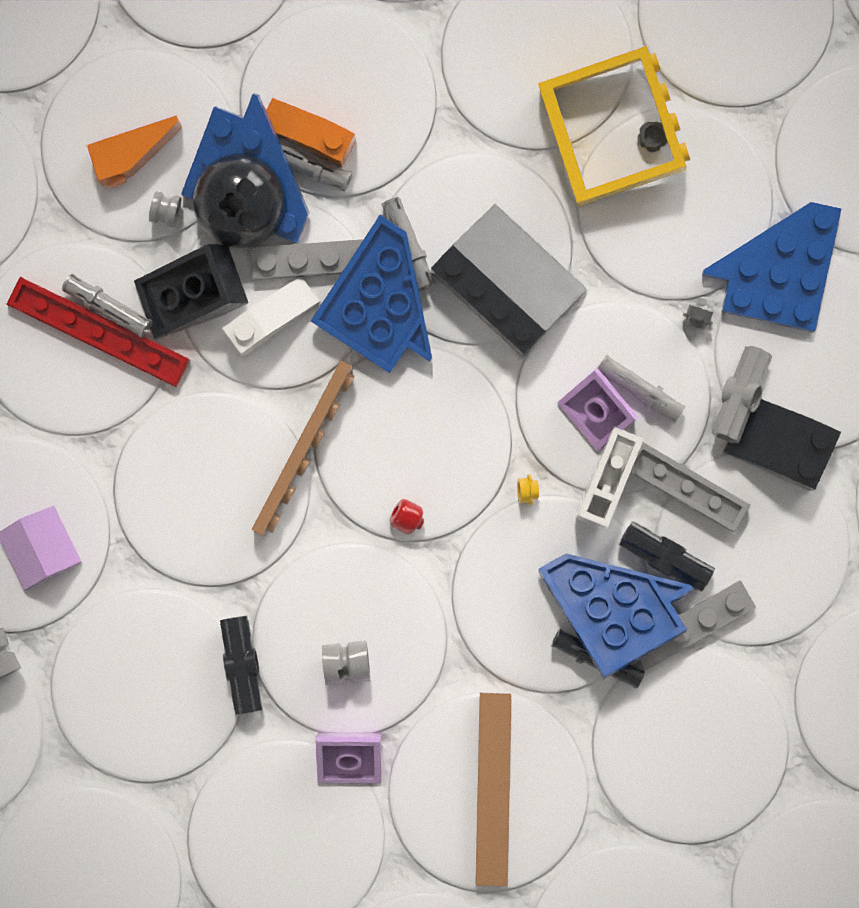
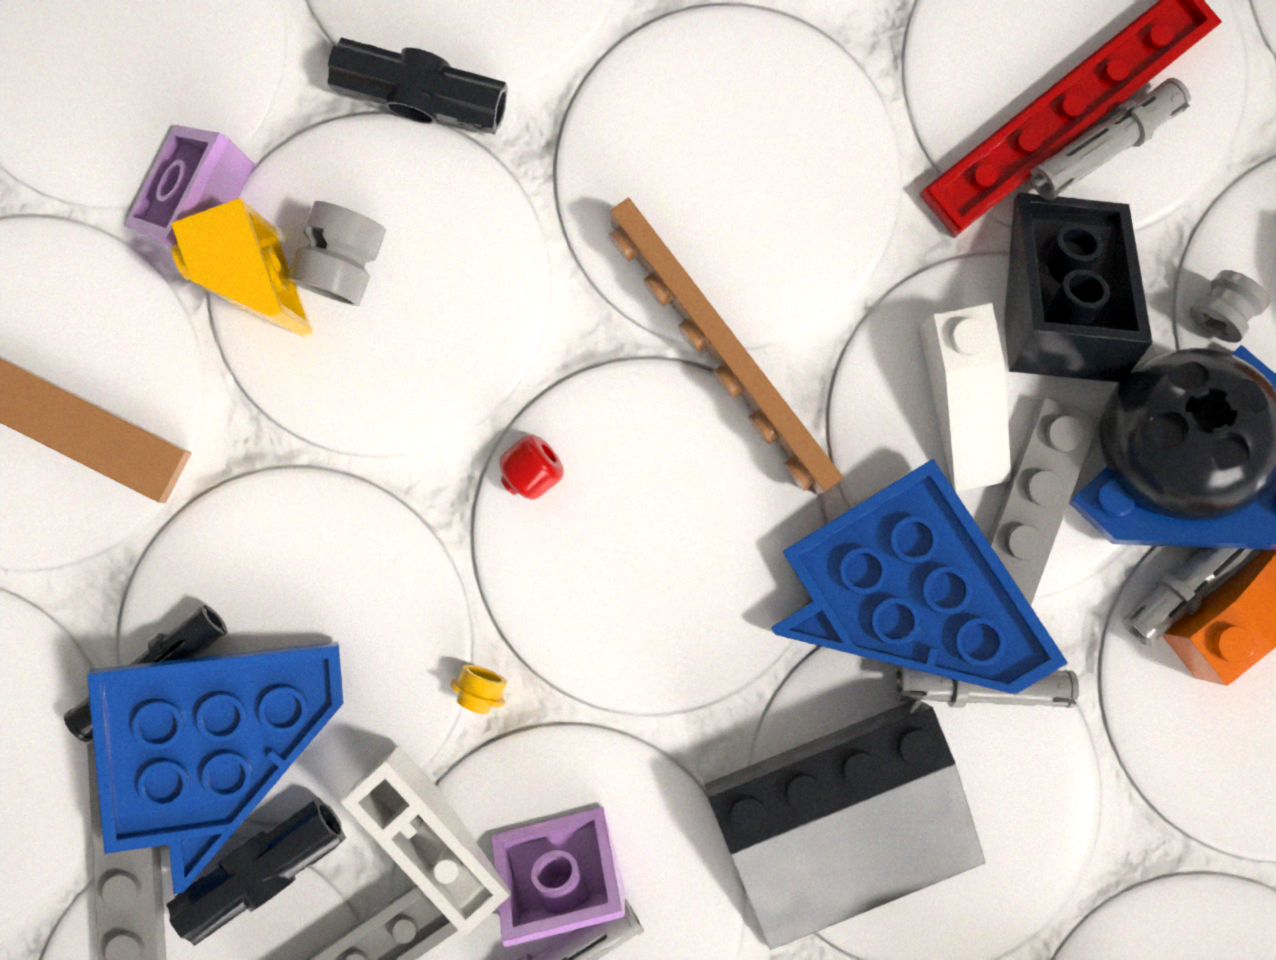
camera: 115 degrees right, 0 degrees up
(375, 703) = (241, 261): none -> yellow slope

